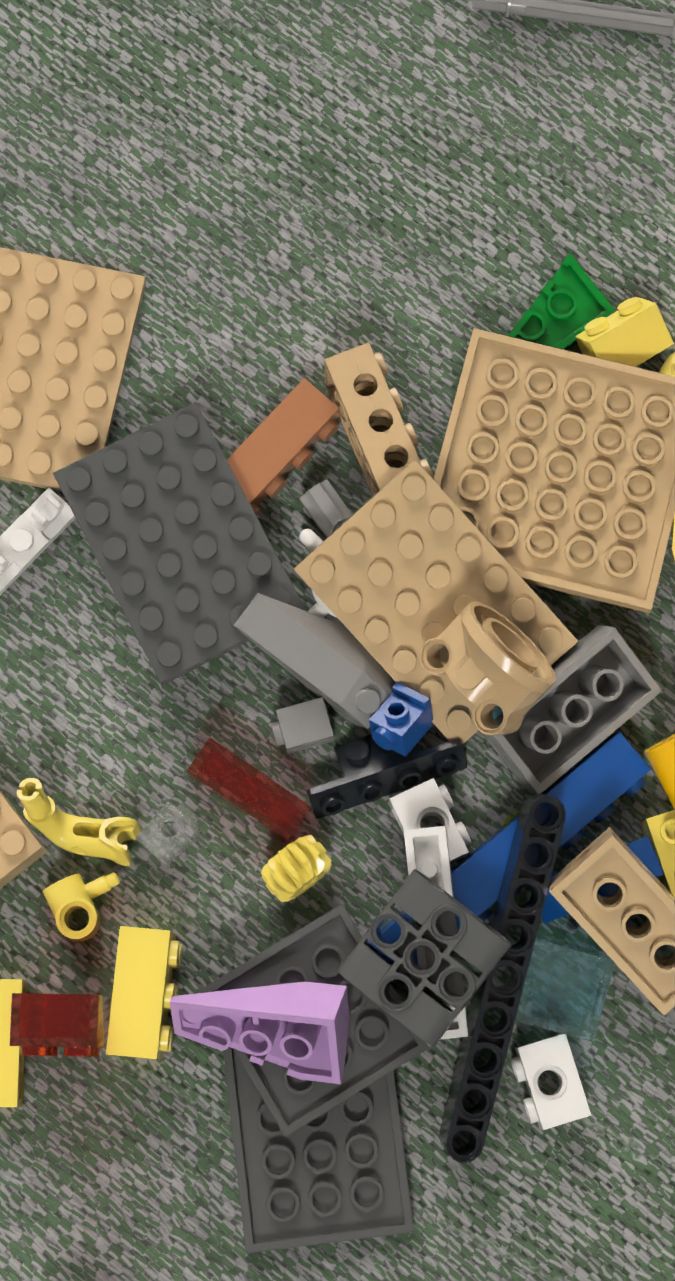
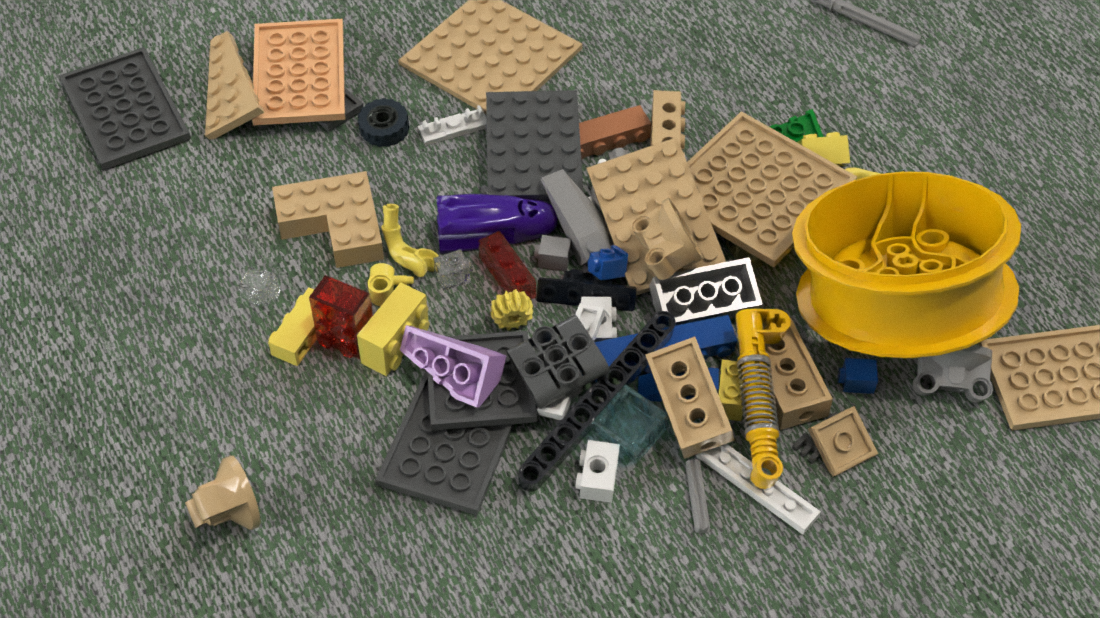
camera: 25 degrees right, 25 degrees down
(172, 722) = (470, 217): none -> dark purple piece

